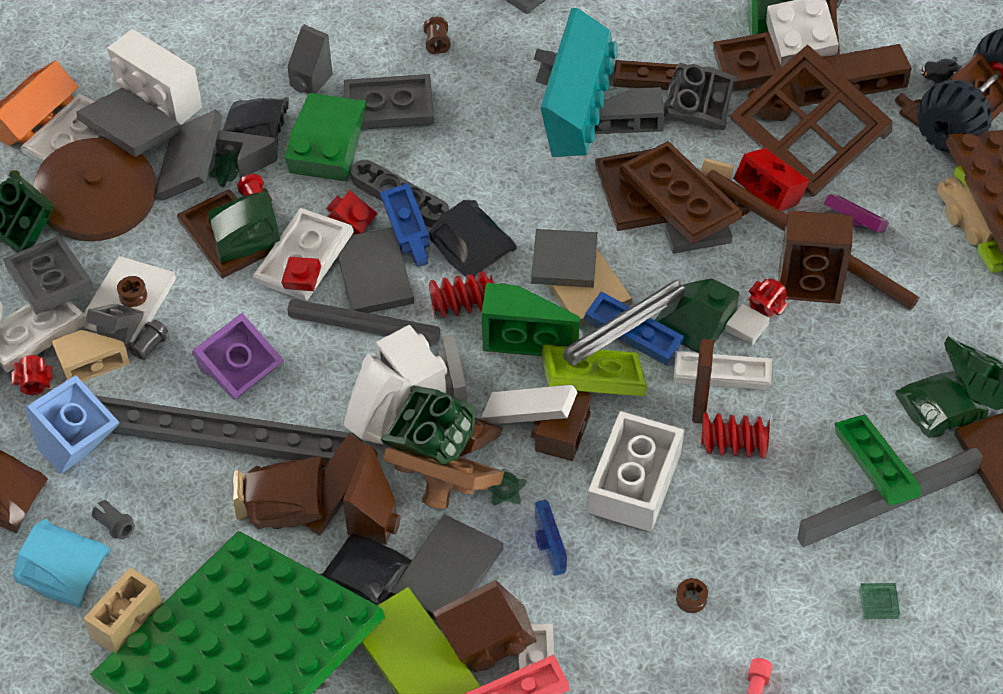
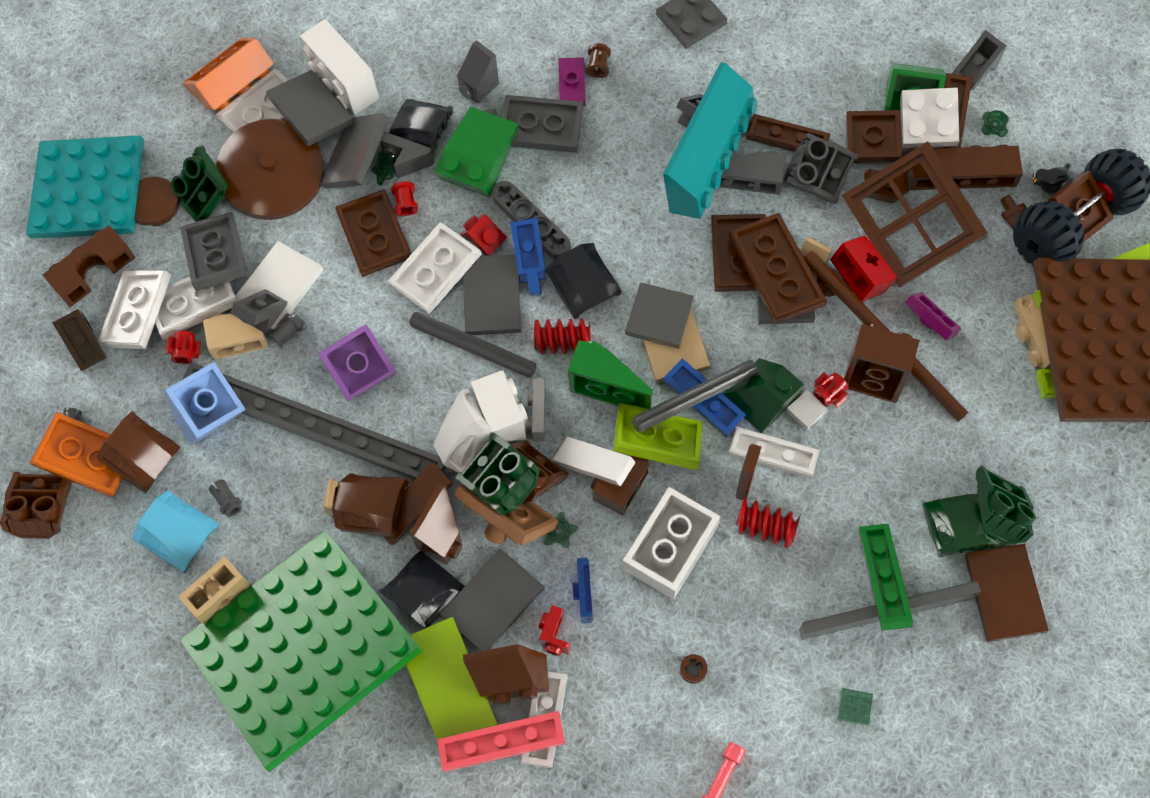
camera: 15 degrees right, 15 degrees up
(128, 298) = (274, 284): reddish brown bush -> none
(244, 226) = (387, 233): dark green slope -> none
(301, 273) = (426, 291): red plate -> none
(411, 56) = (572, 79): none -> magenta plate
(520, 578) = (550, 626): none -> red bracket
(869, 32) = (995, 117): none -> clear green plate

